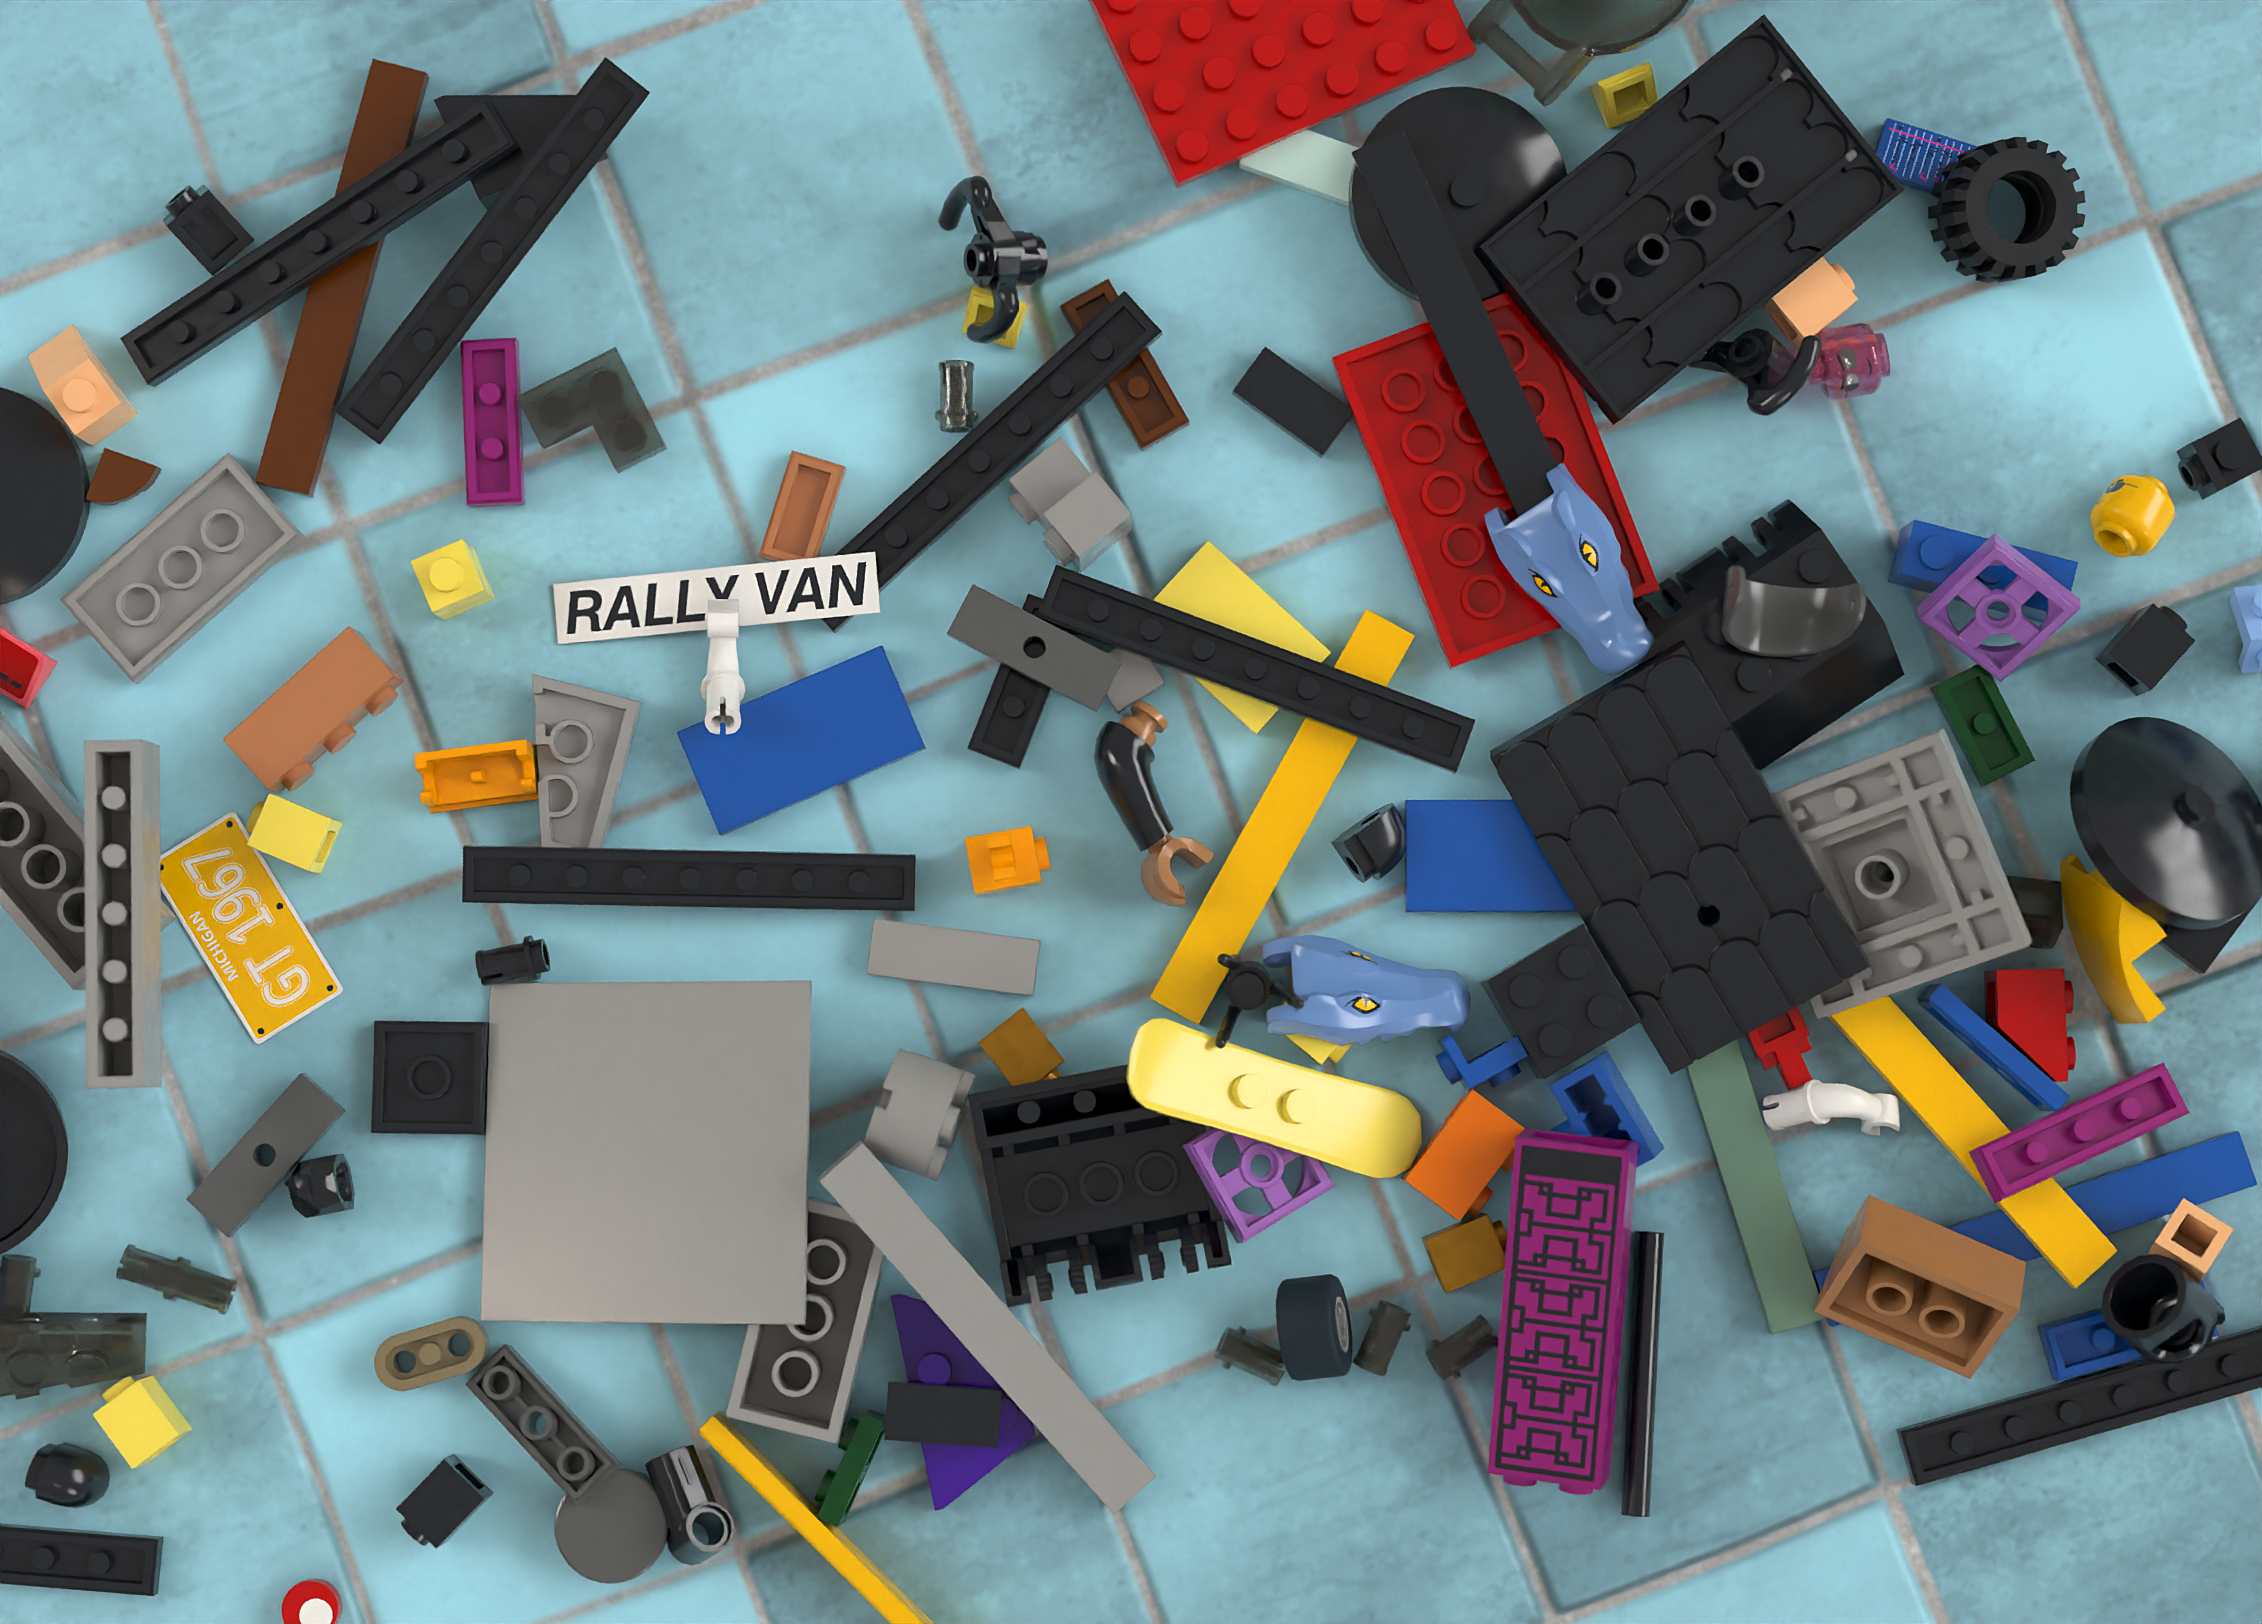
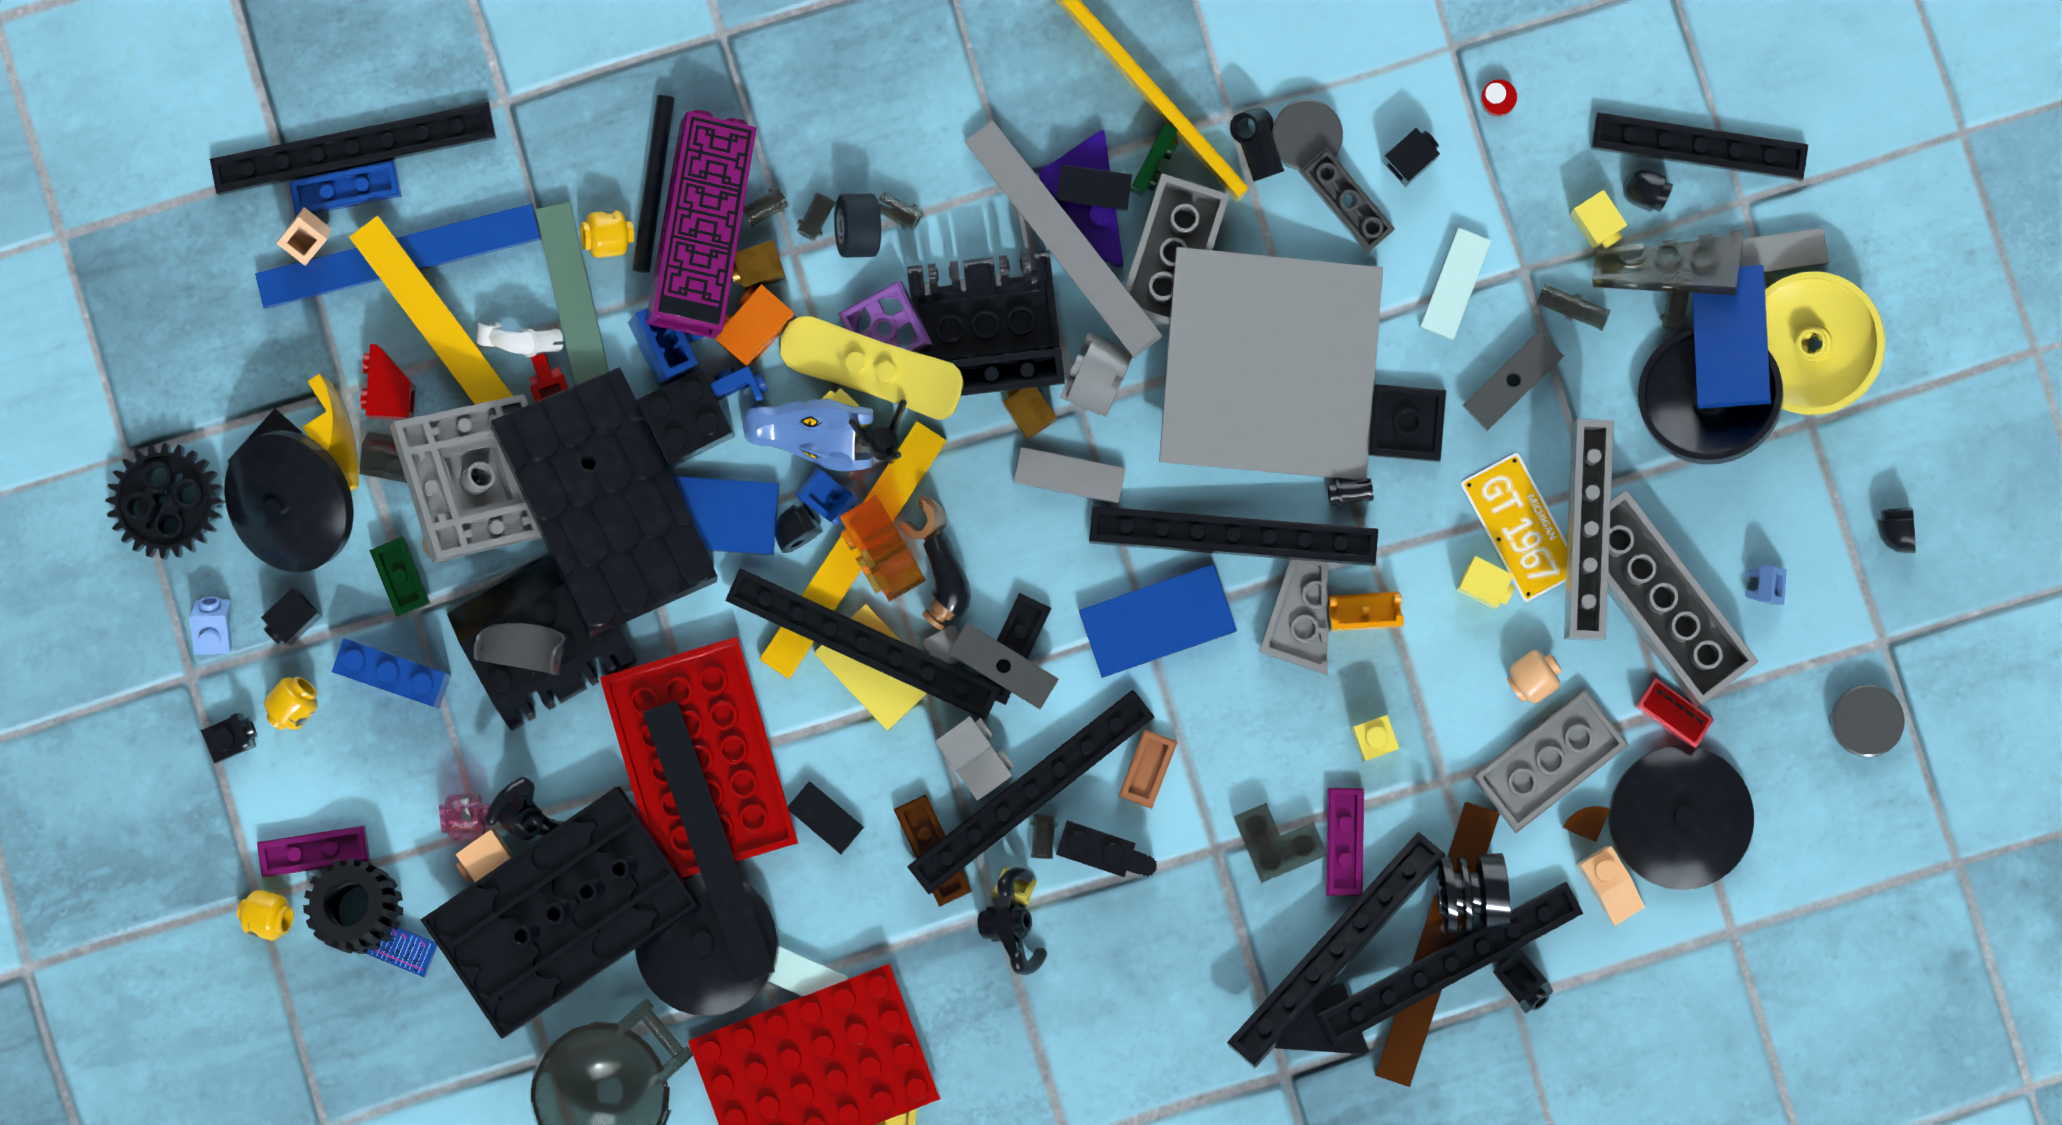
camera: 175 degrees left, 0 degrees up
(210, 693) = (1534, 676): none -> light nougat head
(293, 344) = (1473, 892): none -> black wheel
(315, 712) = (1467, 659): nougat brick -> none
(322, 1186) = (1478, 358): black rock -> none
(365, 1302) = (1455, 284): none -> light aqua tile
(432, 1353) = (1414, 250): dark tan plate -> none
(680, 599) = (1206, 716): white sticker -> none
(722, 685) = (1205, 660): white piece -> none
(861, 377) = (1103, 851): none -> black hinge
(1006, 860) = (1031, 533): light orange brick -> none
(1235, 811) = (883, 551): none -> clear orange brick
(1329, 893) = (826, 496): none -> blue bracket
(1572, 567) = (654, 691): medium blue animal -> none
(1625, 95) = (592, 1005): light yellow slope -> none
(1710, 1286) = (606, 234): none -> yellow head
(1921, 1287) = (474, 223): medium nougat slope -> none
(1992, 1048) = (413, 369): blue tile -> none
(1998, 660) = (365, 659): medium lavender piece -> none
(2073, 296) = (312, 851): none -> magenta tile
(2078, 1132) = (365, 312): magenta tile -> none
(2138, 191) = (265, 915): none -> yellow head
(2160, 1309) = (327, 196): black piece -> none

